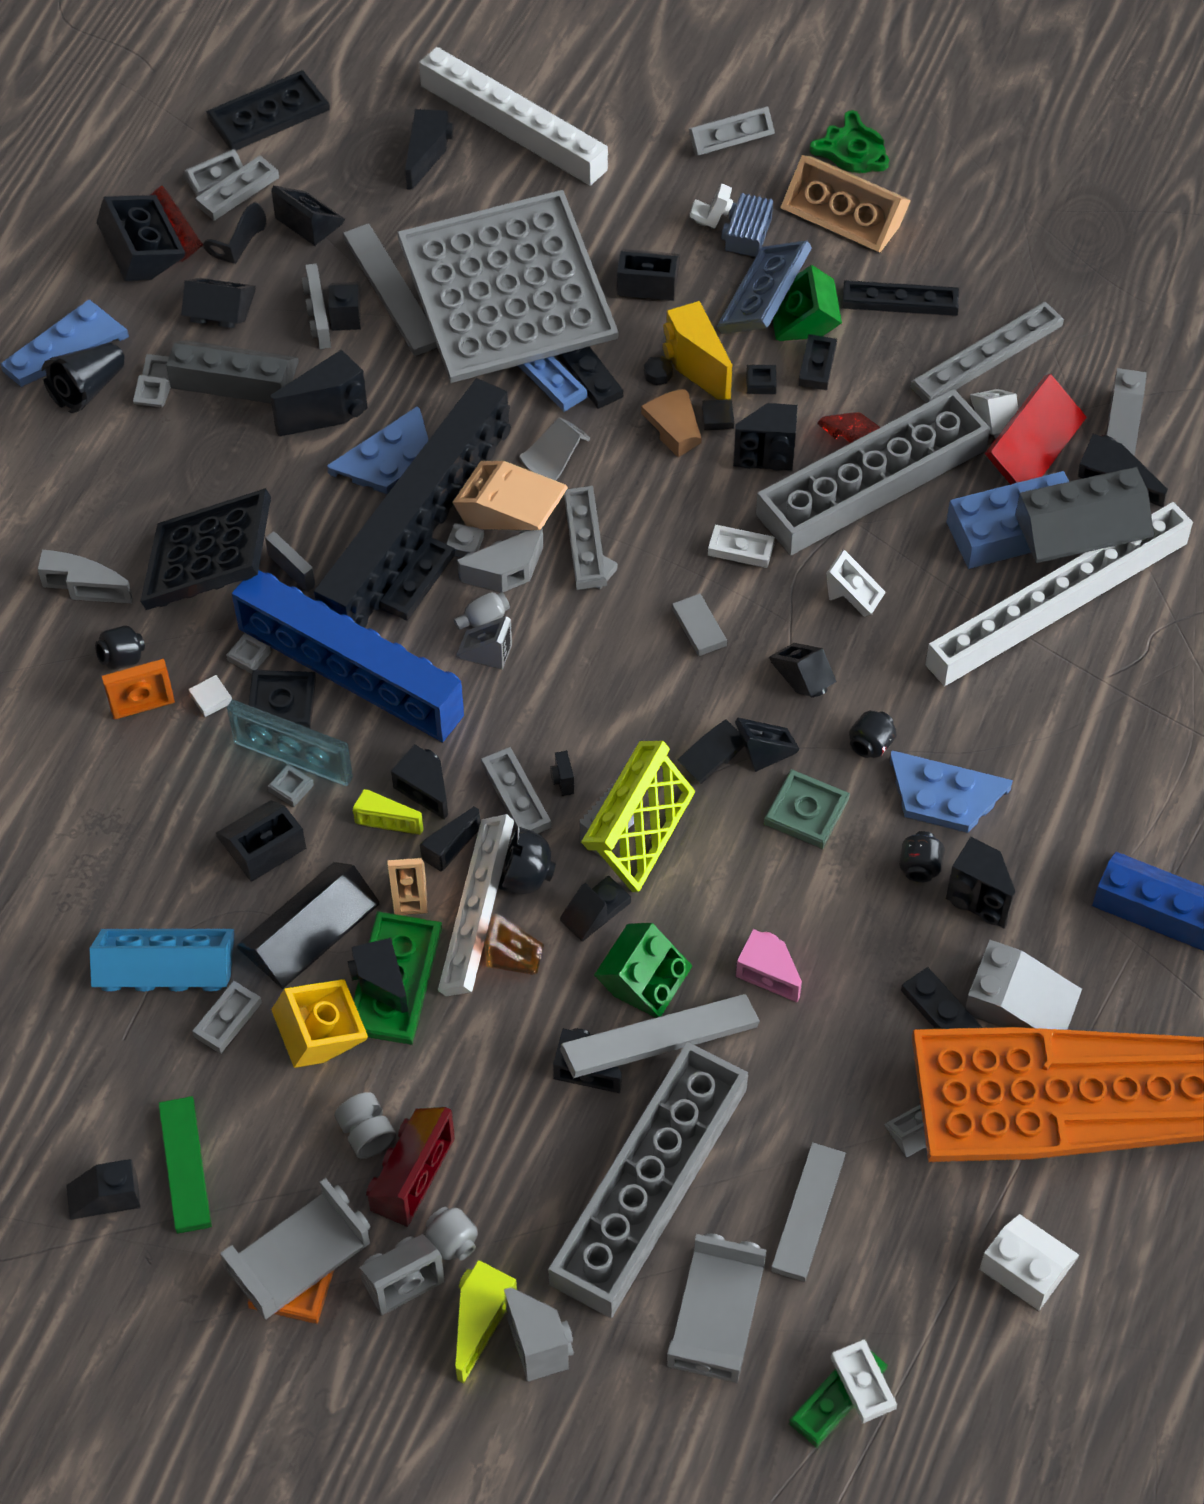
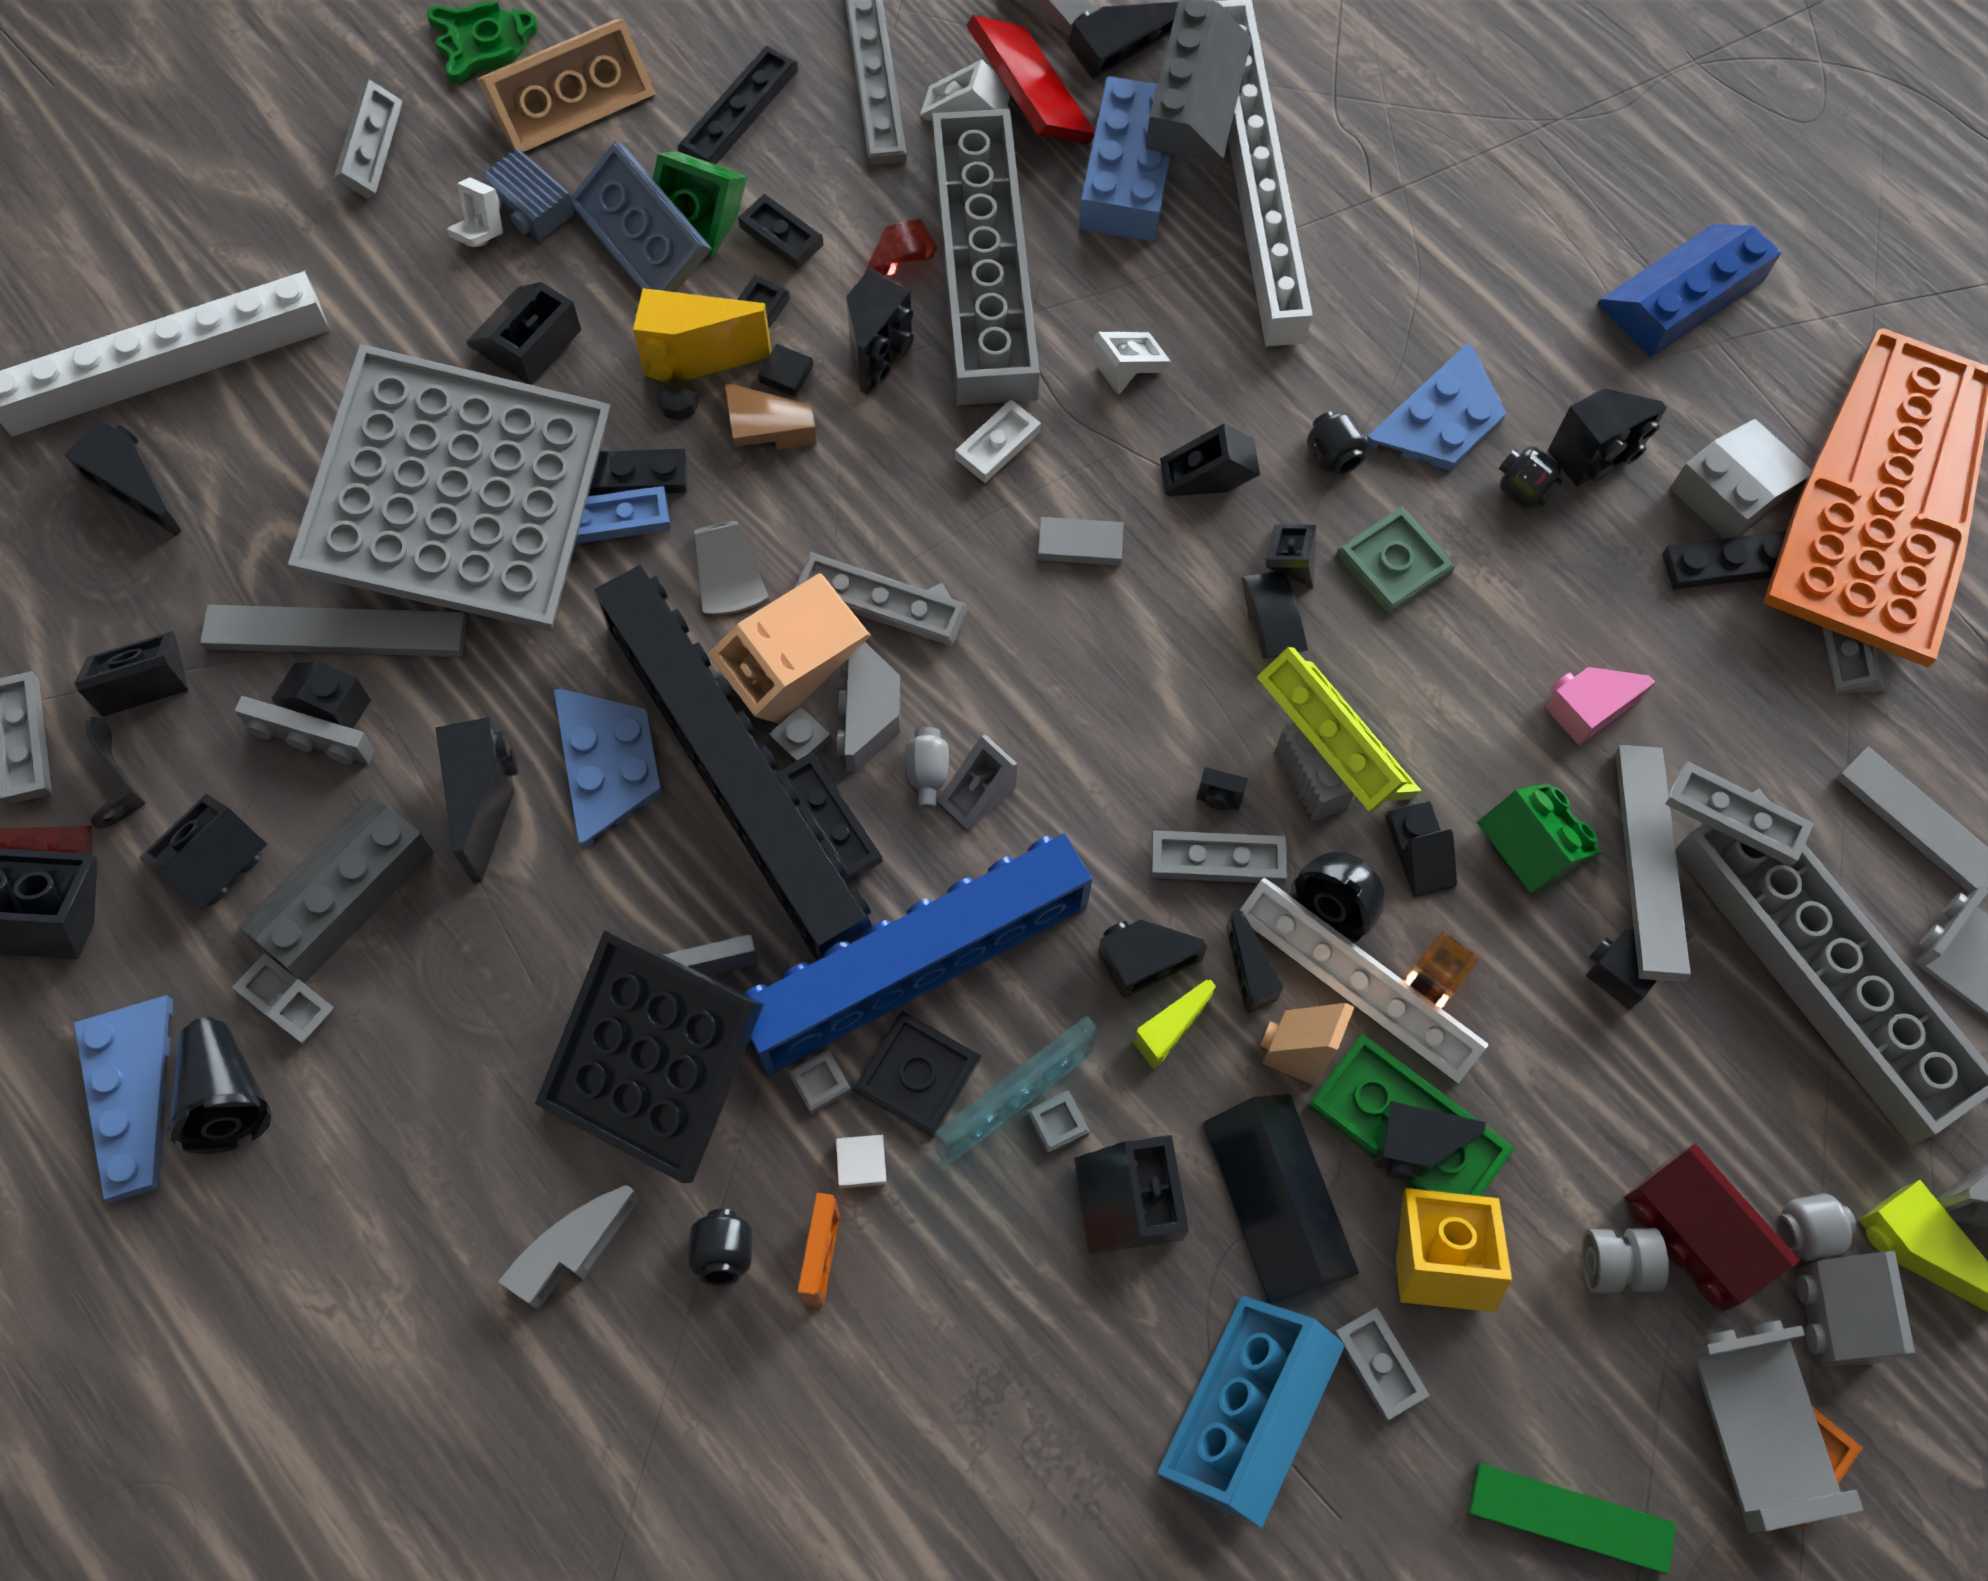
camera: 65 degrees left, 10 degrees up
(713, 1058) = (1739, 814): none -> light grey plate

